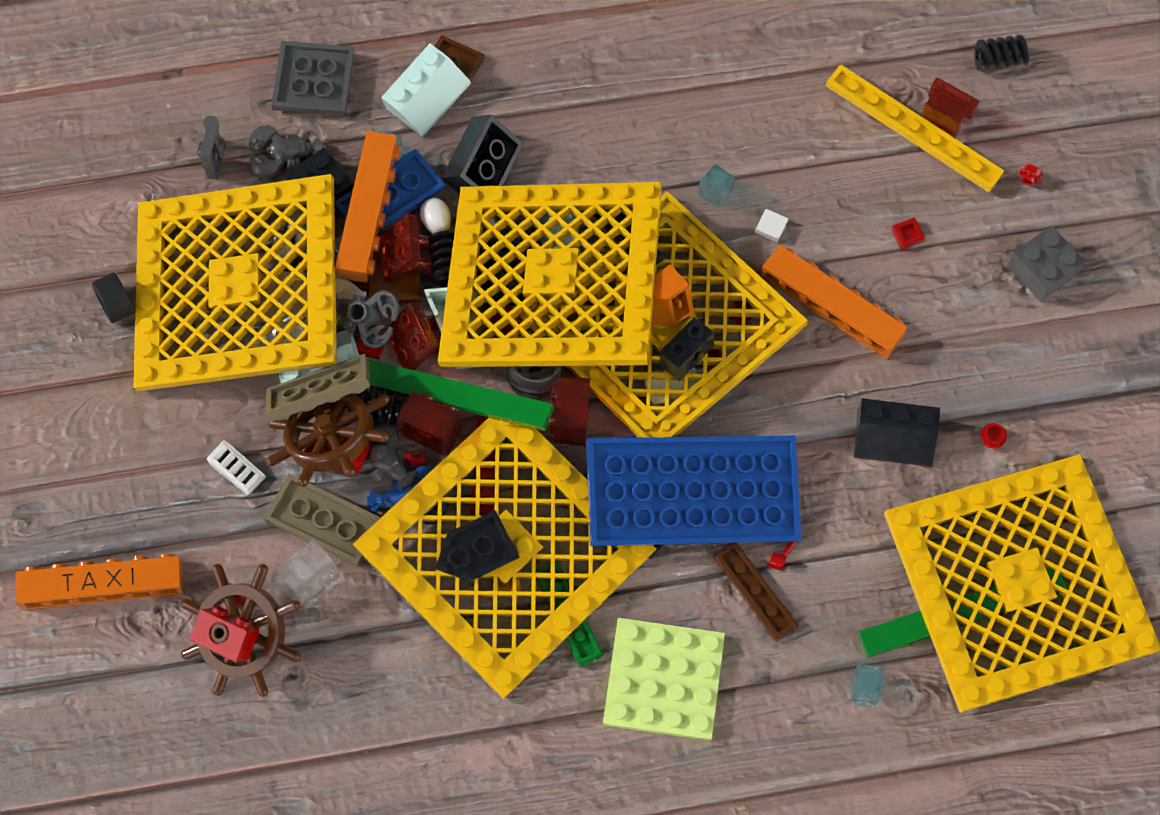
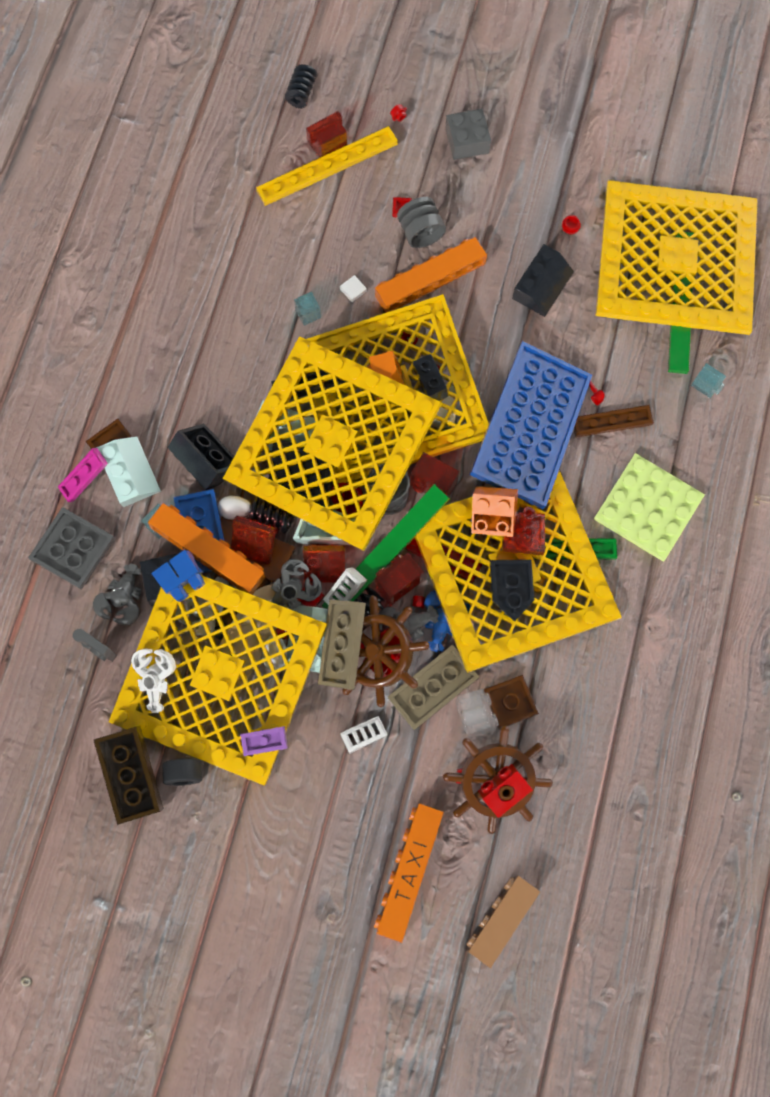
camera: 65 degrees left, 5 degrees up
(84, 706) = (503, 920): none -> medium nougat brick
(86, 244) = (128, 775): none -> dark brown brick
(176, 359) = (264, 741): none -> medium lavender plate
(199, 216) = (154, 676): none -> white animal
(318, 183) = (178, 573): none -> blue hips
(345, 614) = (511, 701): none -> reddish brown tile
(396, 47) = (82, 475): none -> dark pink tile
(405, 377) = (347, 577): none -> white slope
(548, 535) = (528, 534): none -> clear red plate
(555, 486) = (494, 511): none -> orange slope
(892, 258) = (421, 222): none -> dark grey wheel

